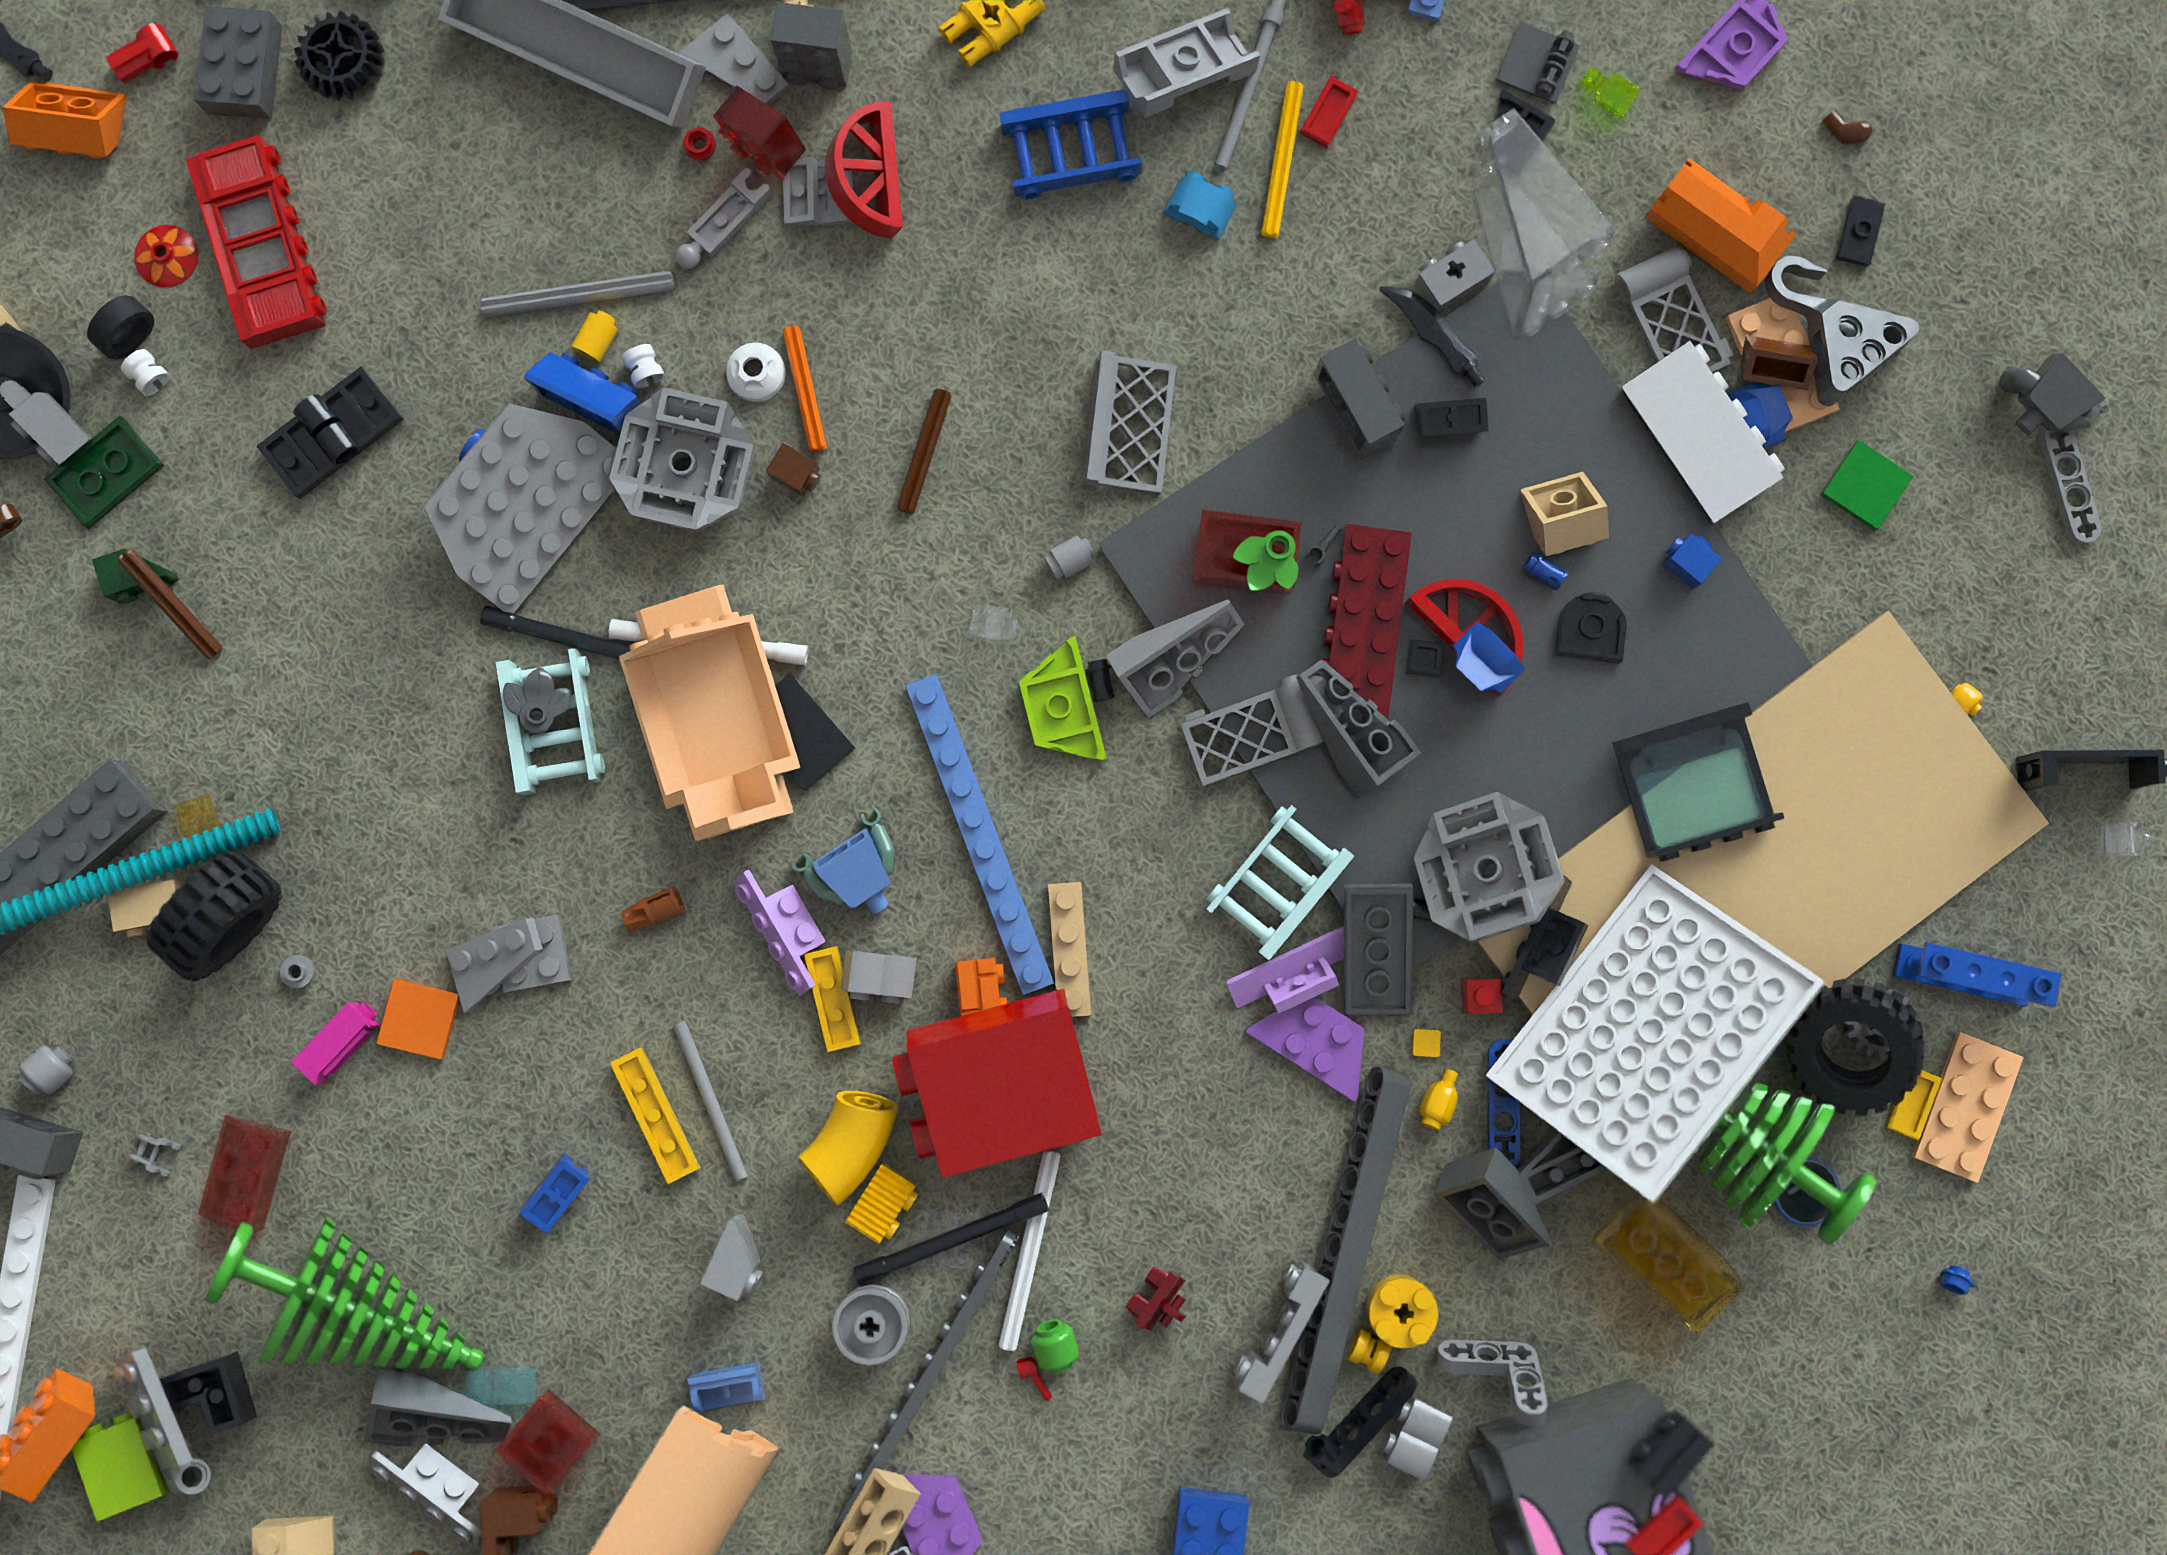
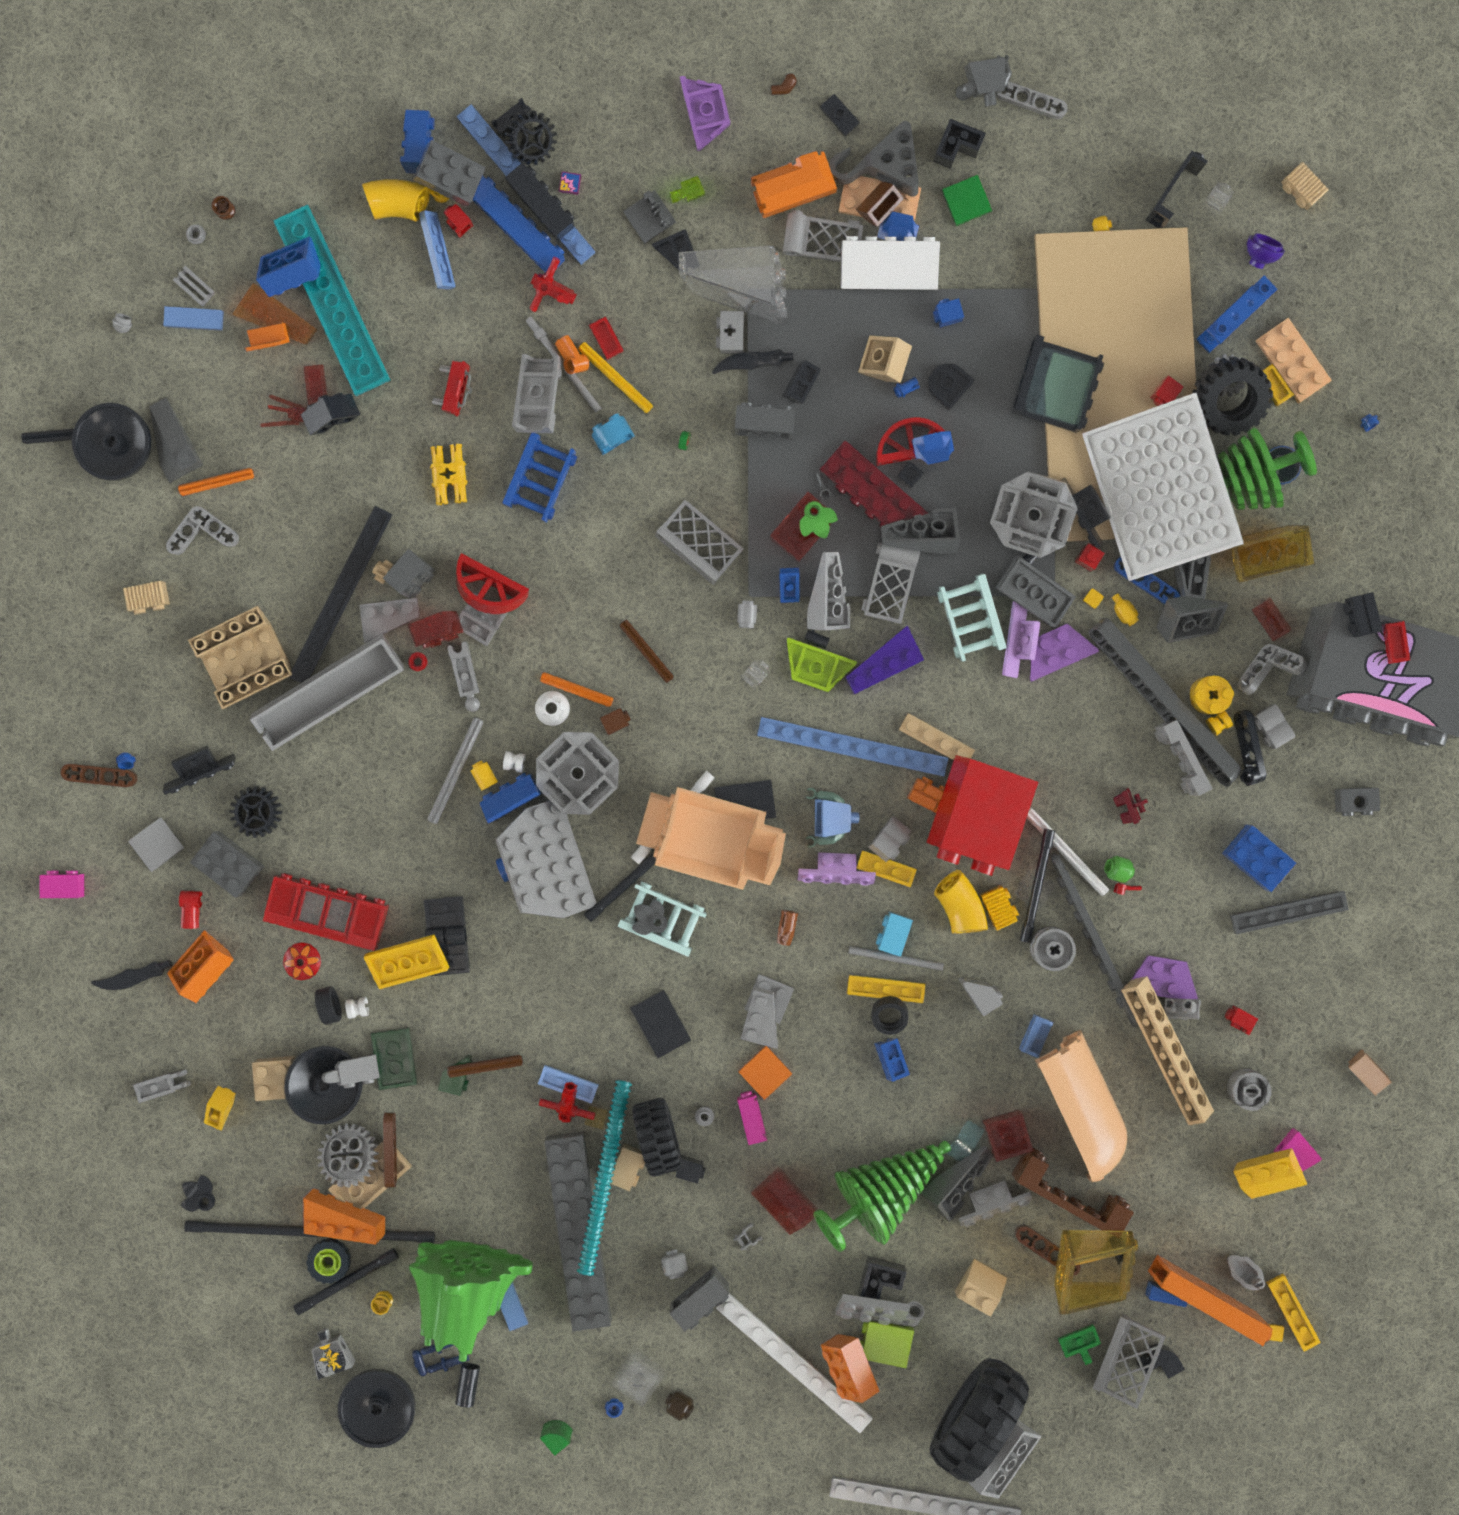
camera: 60 degrees left, 5 degrees up
(187, 759) = (567, 1107): none -> red piece
(203, 1001) = (691, 1170): none -> black brick
(221, 742) = (556, 1079): none -> light blue plate
(253, 396) = (406, 962): none -> yellow plate
(395, 820) = (660, 1024): none -> black tile
(595, 1146) = (889, 1002): none -> black tyre
(743, 1073) = (894, 933): none -> medium azure brick
(1135, 801) = (887, 661): none -> dark purple wedge
(1151, 587) = (789, 585): none -> blue slope
(1258, 310) = (684, 440): none -> green tile
(1266, 84) = (573, 360): none -> orange piece
(1572, 1328) = (1271, 619): none -> clear red slope
(1799, 946) = (1166, 391): none -> red brick
(1945, 414) = (956, 139): none -> black brick
(2094, 954) = (1263, 250): none -> dark purple piece

